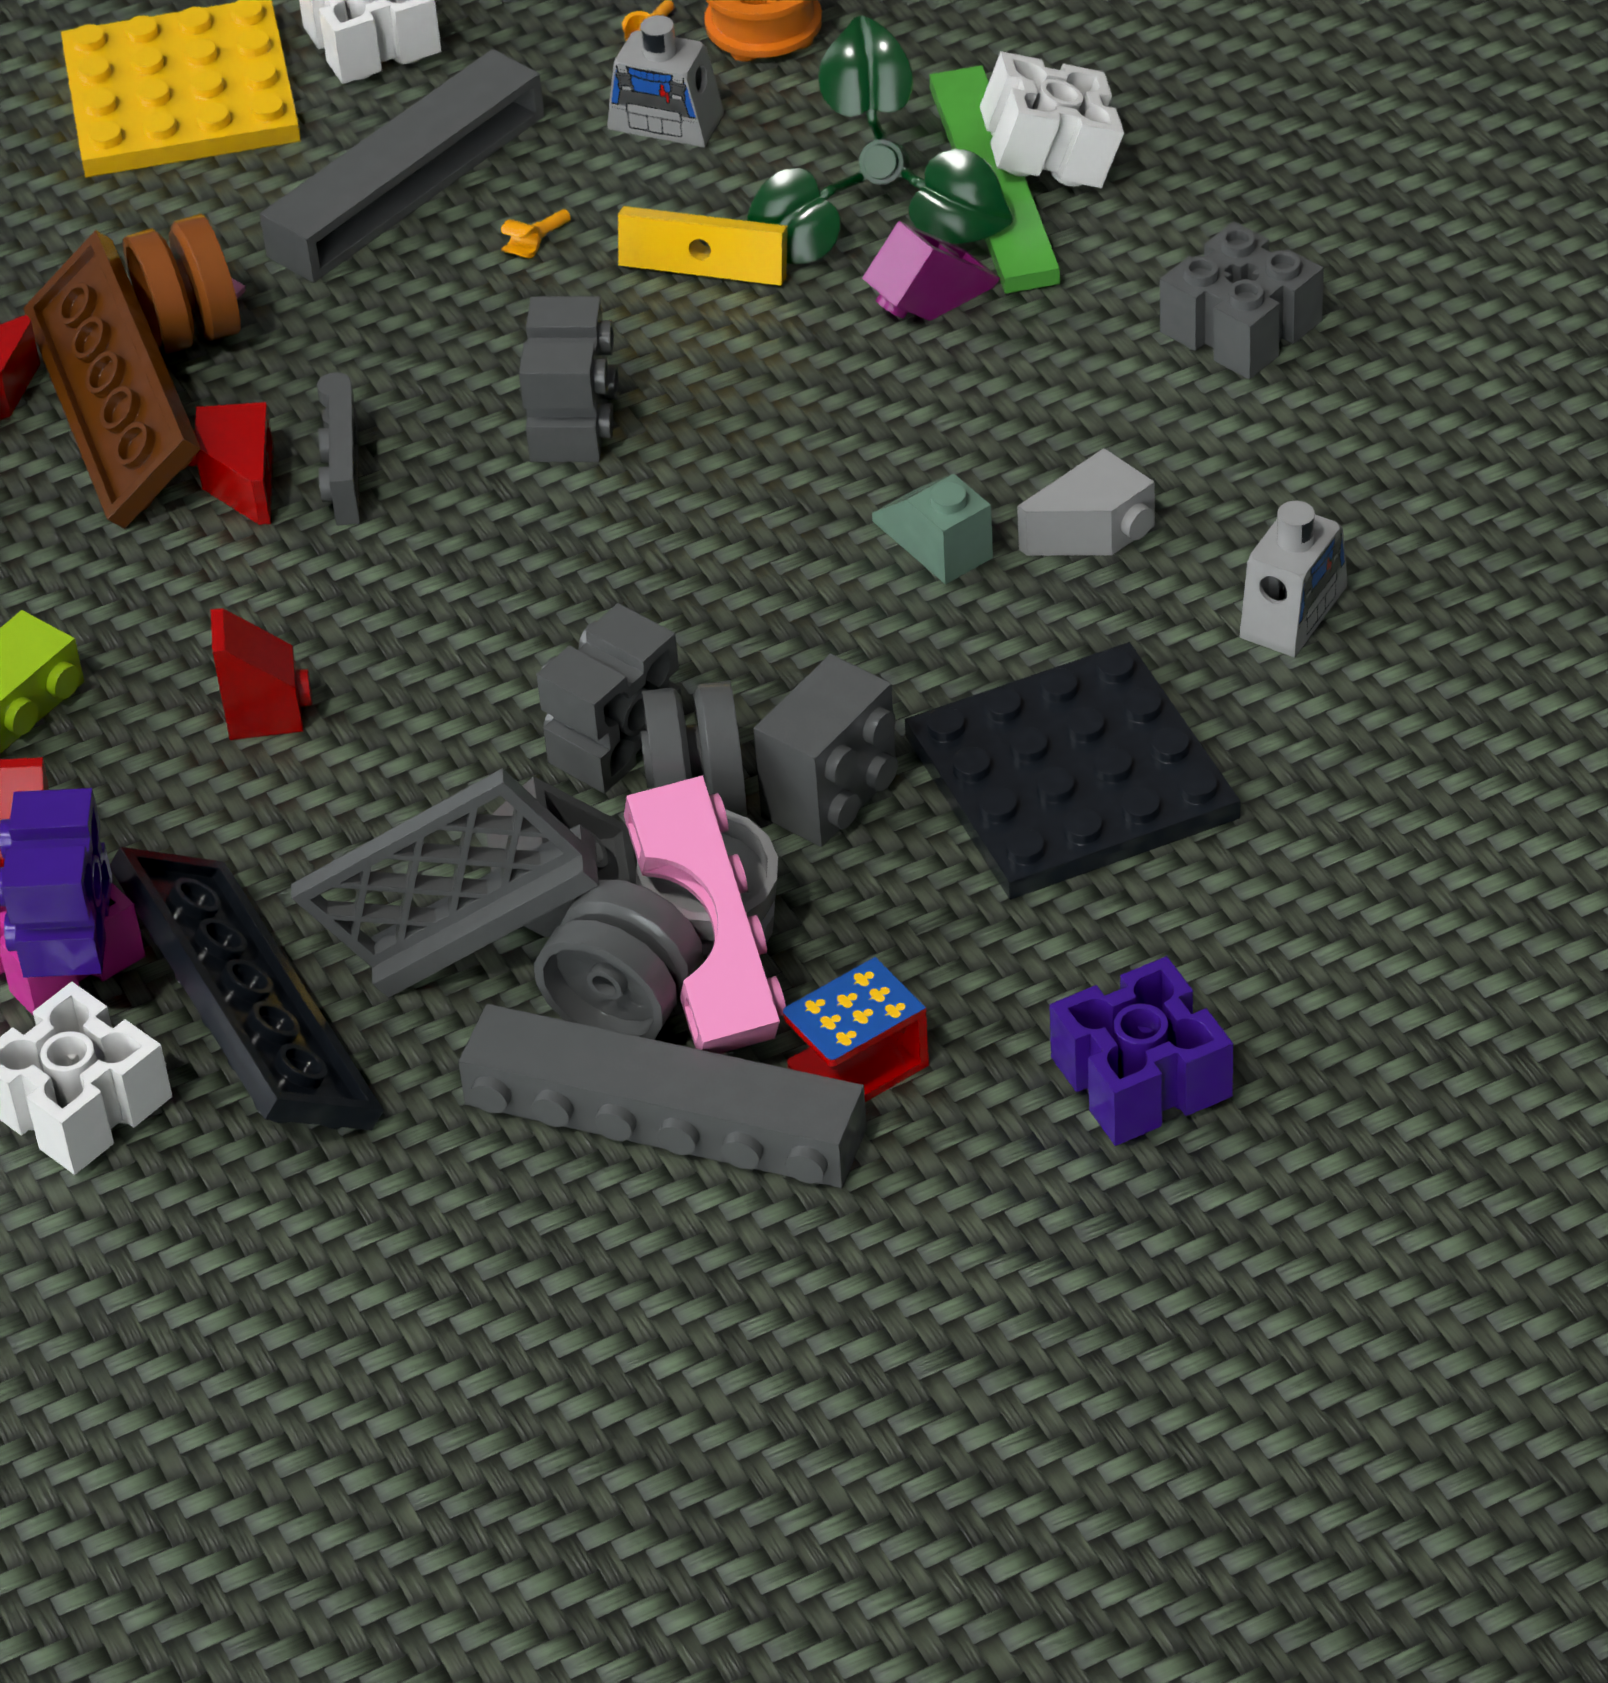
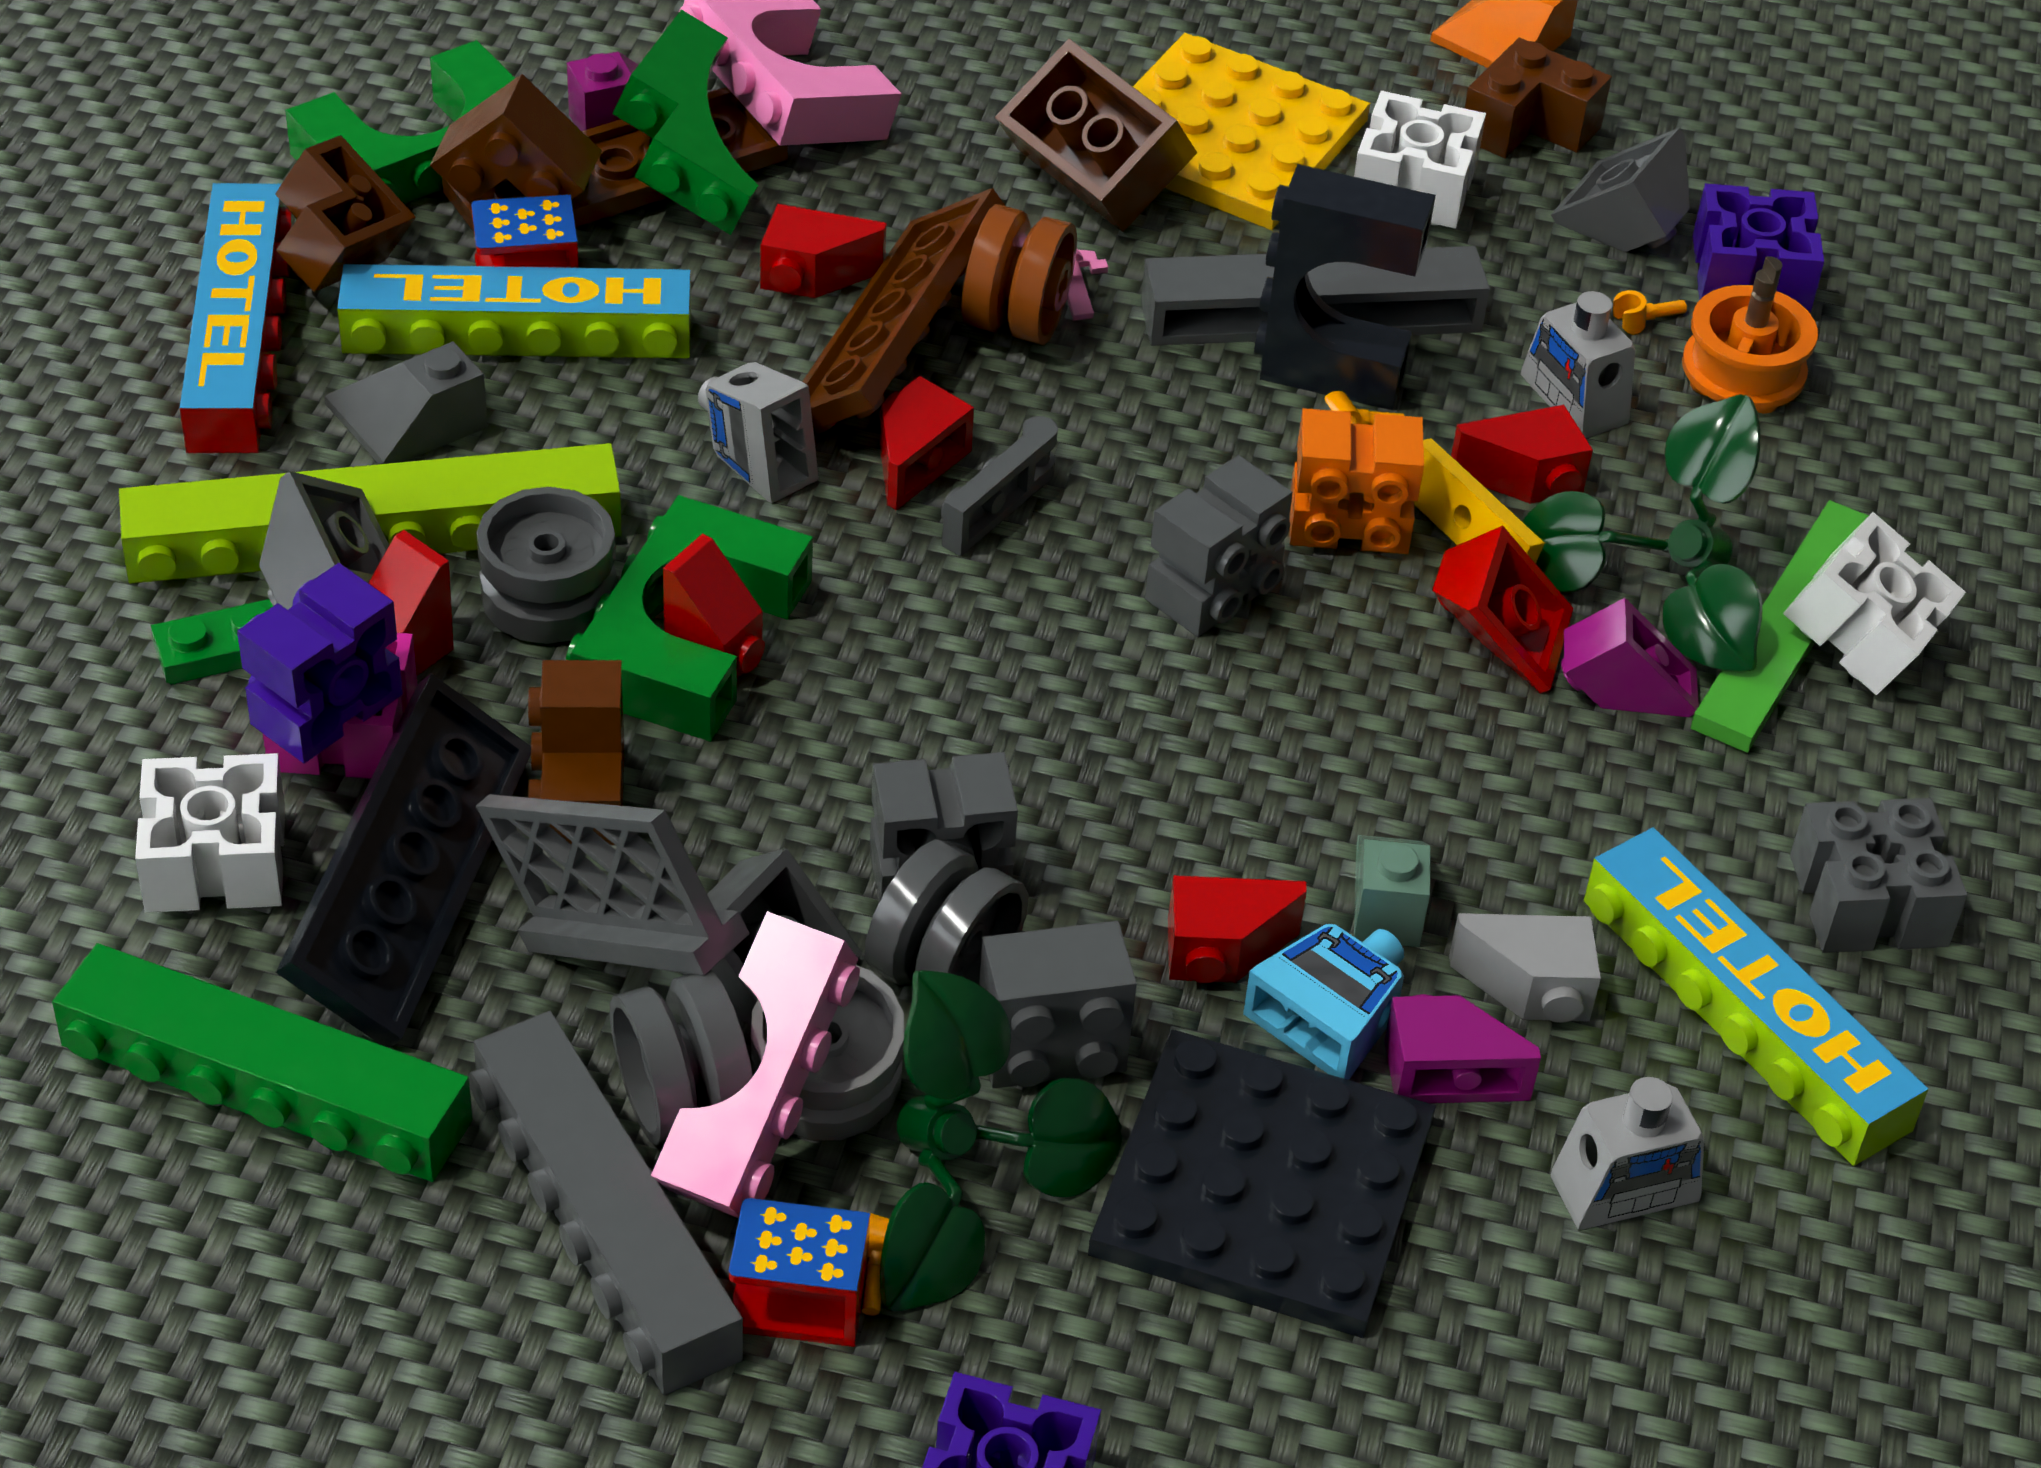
camera: 35 degrees right, 0 degrees up
(85, 721) = (545, 563): none -> dark grey wheel
(109, 145) = (1096, 135): none -> reddish brown brick
(114, 524) = (762, 428): none -> light grey torso
(220, 751) = (668, 676): none -> green arch
(271, 823) = (579, 734): none -> reddish brown brick
(306, 1194) = (264, 1062): none -> green brick
(423, 84) = (1330, 221): none -> black arch
(613, 256) = (1356, 481): none -> orange brick
(695, 173) = (1525, 453): none -> red slope
(795, 291) = (1506, 604): none -> red slope
(845, 793) = (1073, 1140): none -> dark green plant
(861, 622) = (1229, 925): none -> red slope
(985, 623) = (1328, 995): none -> medium azure torso
(1104, 599) = (1456, 1053): none -> magenta slope
(1246, 429) = (1755, 996): none -> brick

